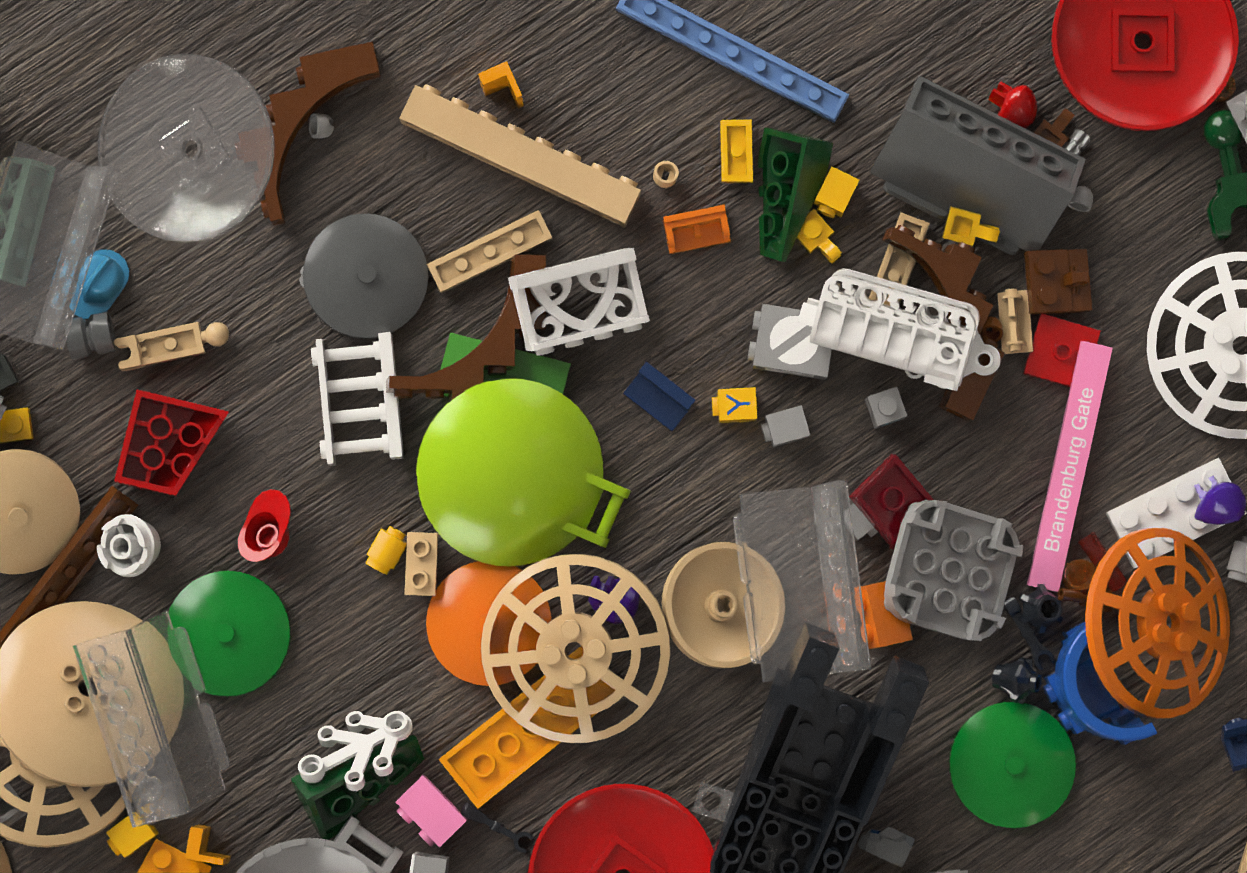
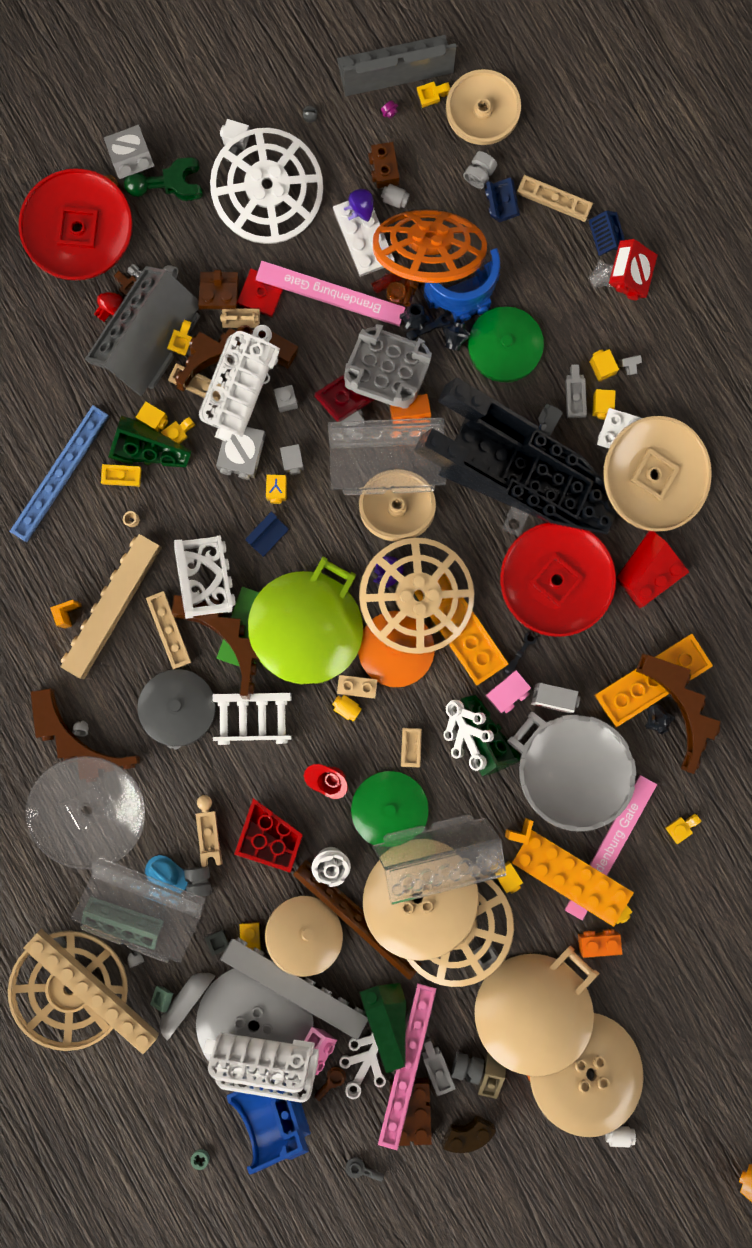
camera: 85 degrees left, 0 degrees up
(330, 660) = (411, 747): none -> tan plate
(696, 229) = (166, 503): orange hinge -> none

